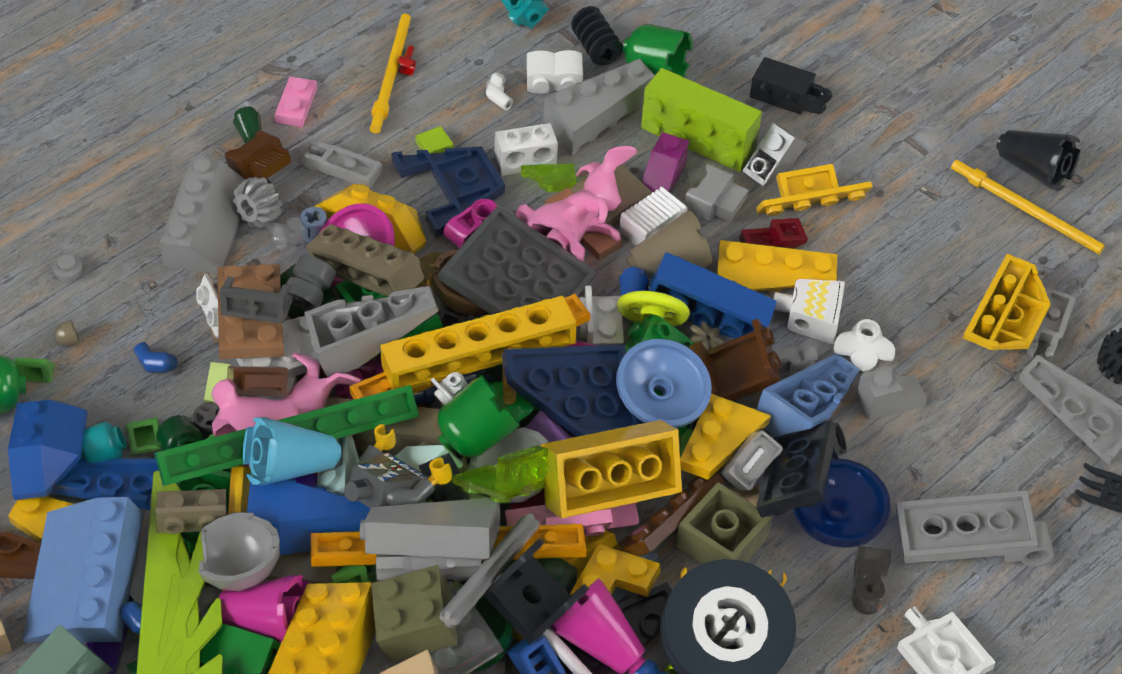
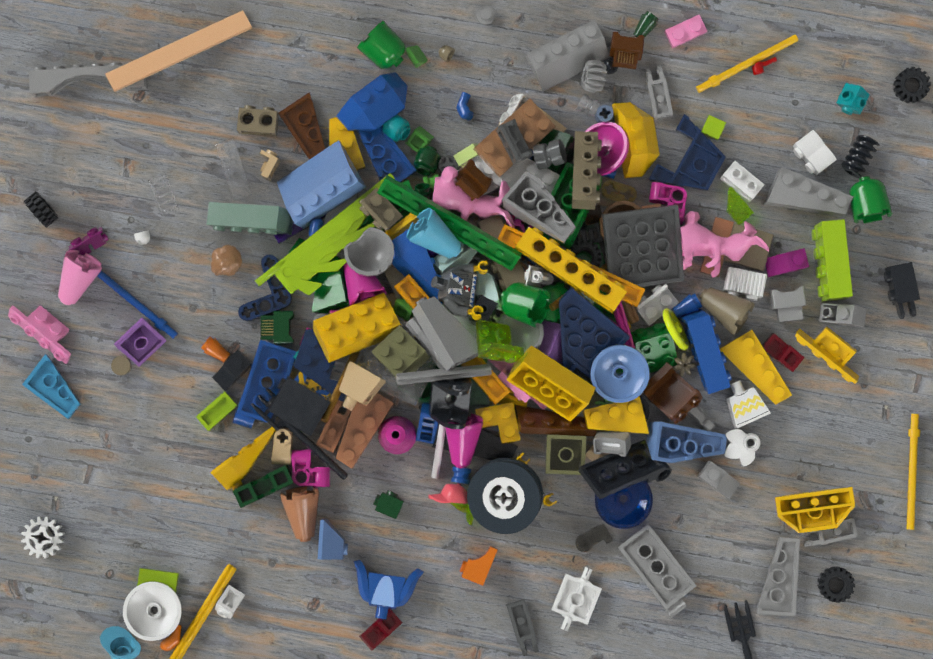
camera: 55 degrees right, 35 degrees up
(496, 93) = (776, 130): white arm -> none

